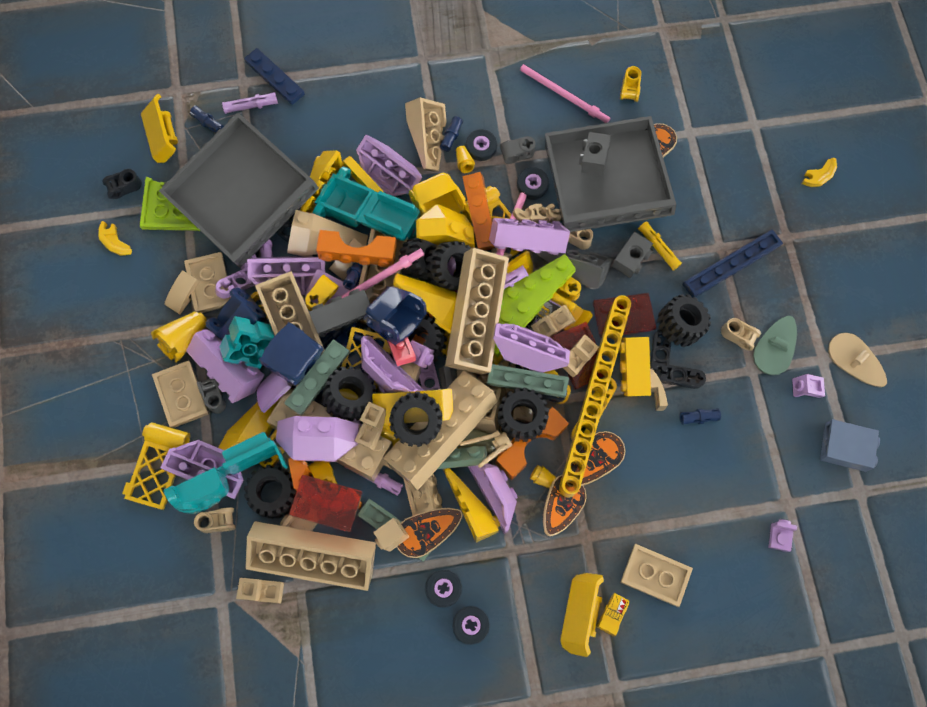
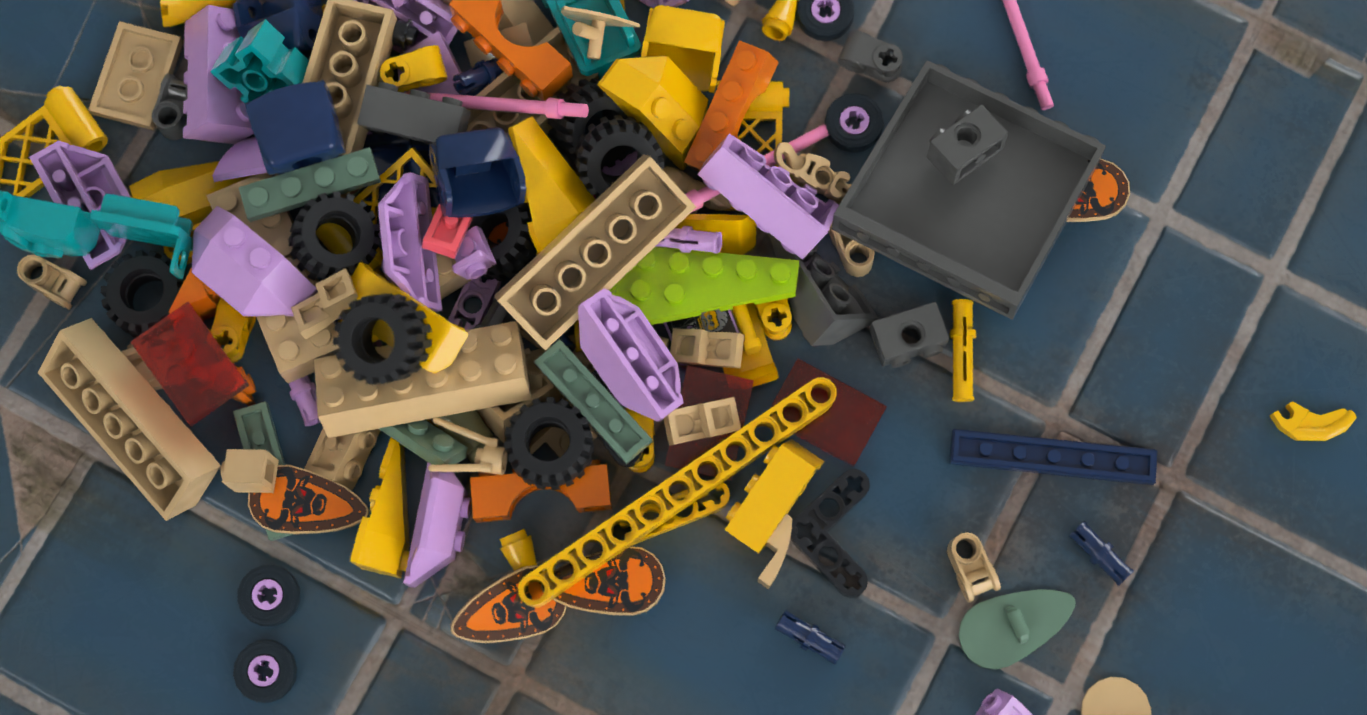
camera: 45 degrees right, 5 degrees up
(260, 590) = (39, 415): tan slope -> none
(302, 281) = (404, 34): none -> black plate
(393, 211) = (592, 26): none -> tan shield
(631, 87) = (1123, 79): yellow piece -> none
(692, 312) = (922, 477): black tyre -> none
(787, 288) = (1101, 553): none -> dark blue pin

